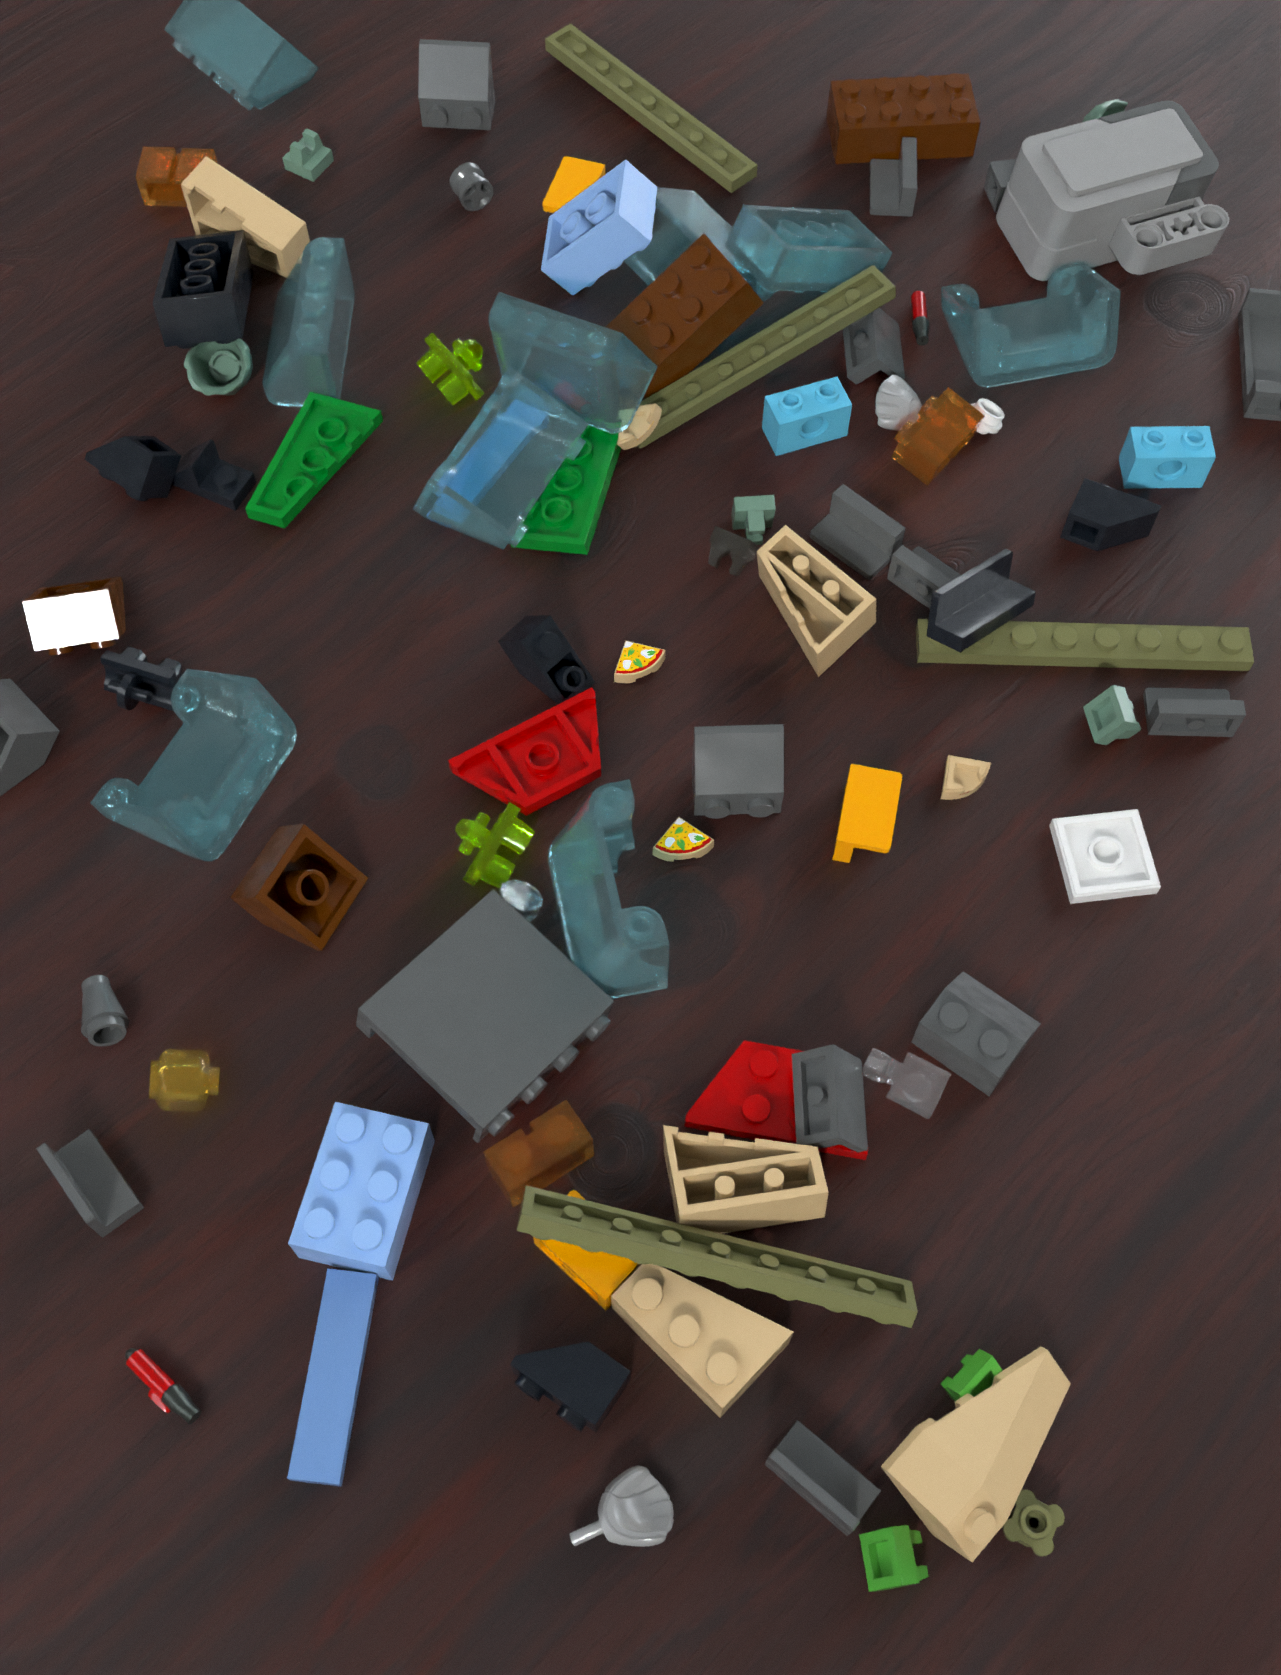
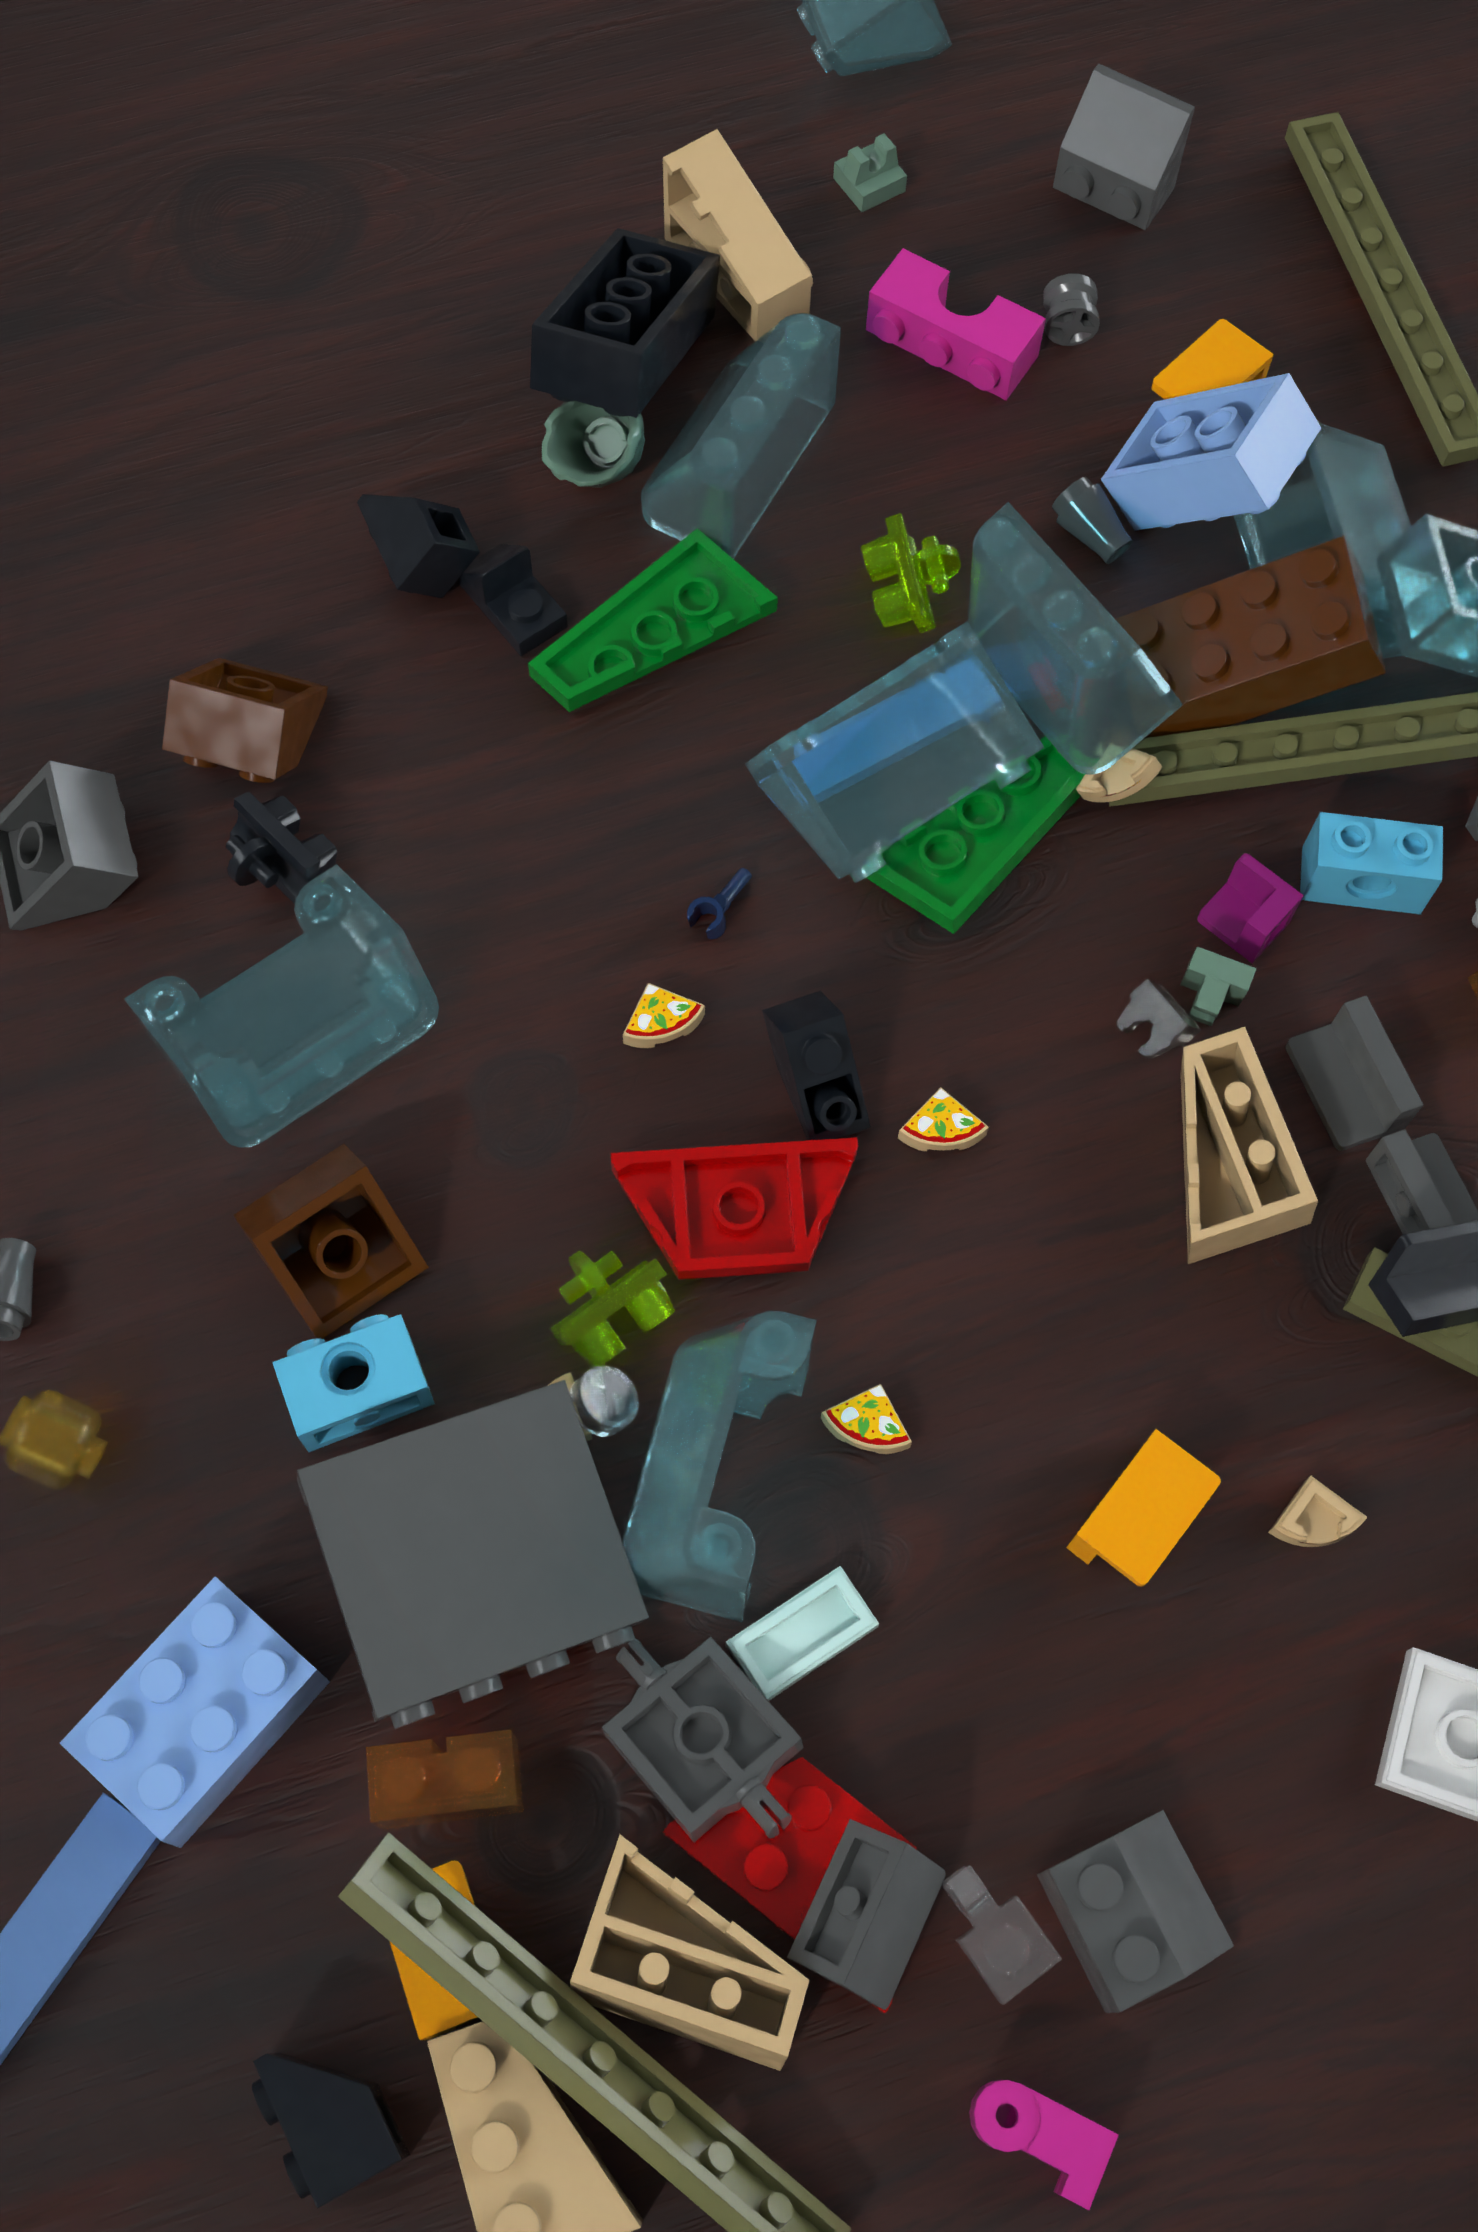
camera: 25 degrees right, 5 degrees up
(164, 170) = (667, 119): clear orange piece -> none
(354, 983) = (391, 1390): none -> medium azure brick
(430, 227) = (984, 348): none -> dark pink arch
(436, 598) = (718, 904): none -> dark blue hand
(436, 675) = (661, 1018): none -> tile
(544, 292) = (1090, 517): none -> dark grey cone
(680, 1056) = (703, 1738): none -> dark grey plate
(706, 976) = (802, 1634): none -> light aqua tile
(738, 770) = (990, 1363): dark grey slope -> none
(751, 467) = (1250, 908): none -> magenta panel
(992, 1171) = (1019, 2118): none -> dark pink leg

